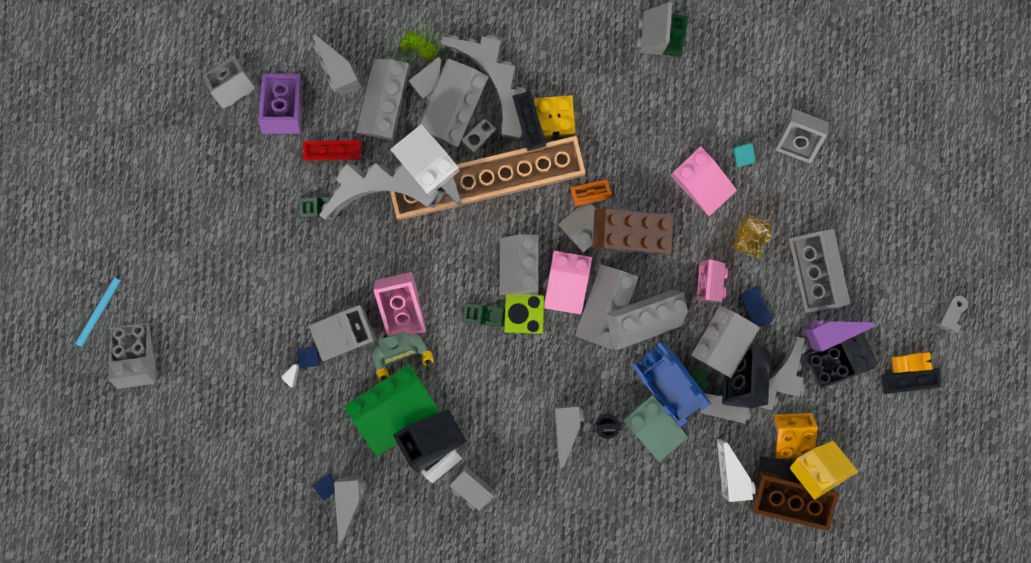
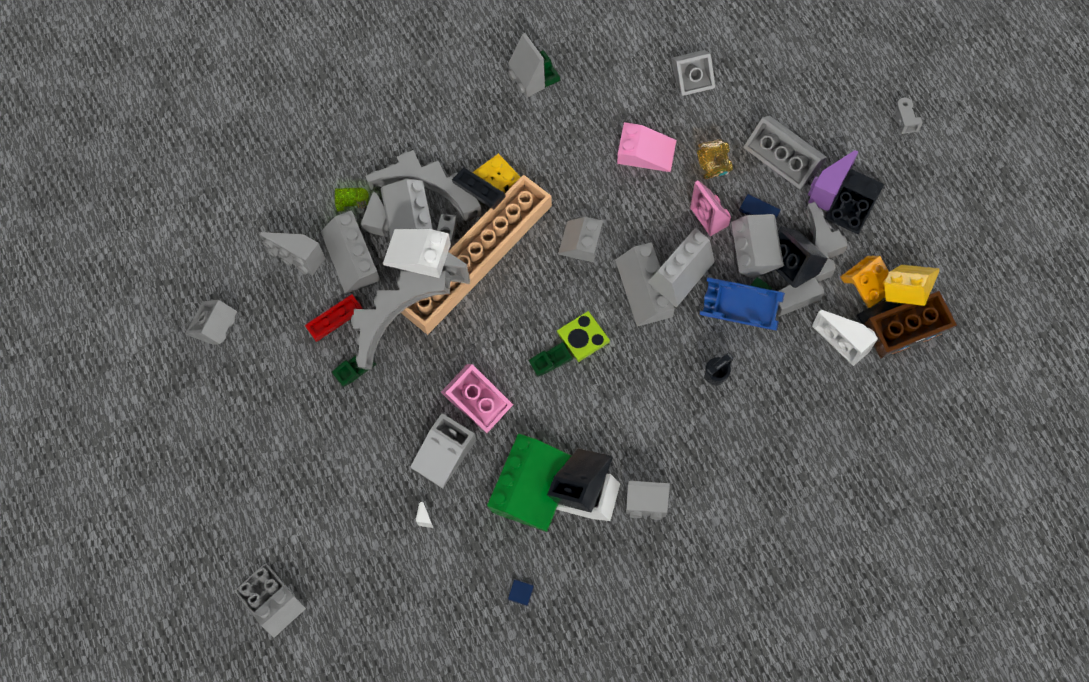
camera: 30 degrees left, 20 degrees down
(97, 312) = (213, 591): medium azure bar -> none
(280, 104) = (267, 311): medium lavender slope -> none
(308, 357) = (428, 493): dark blue tile -> none
(348, 496) = (546, 578): light grey slope -> none
(397, 348) = (498, 431): sand green torso -> none
(519, 265) = (551, 299): light grey slope -> none
(567, 282) = (599, 287): bright pink slope -> none
(567, 427) = (684, 392): light grey slope -> none
(591, 194) = (566, 212): orange tile -> none
(632, 231) = (620, 212): reddish brown brick -> none
(654, 427) = (757, 348): sand green slope -> none
(744, 155) = (661, 112): teal slope -> none
(911, 381) = (919, 182): black tile -> none
(912, 362) = (908, 167): light orange leg -> none

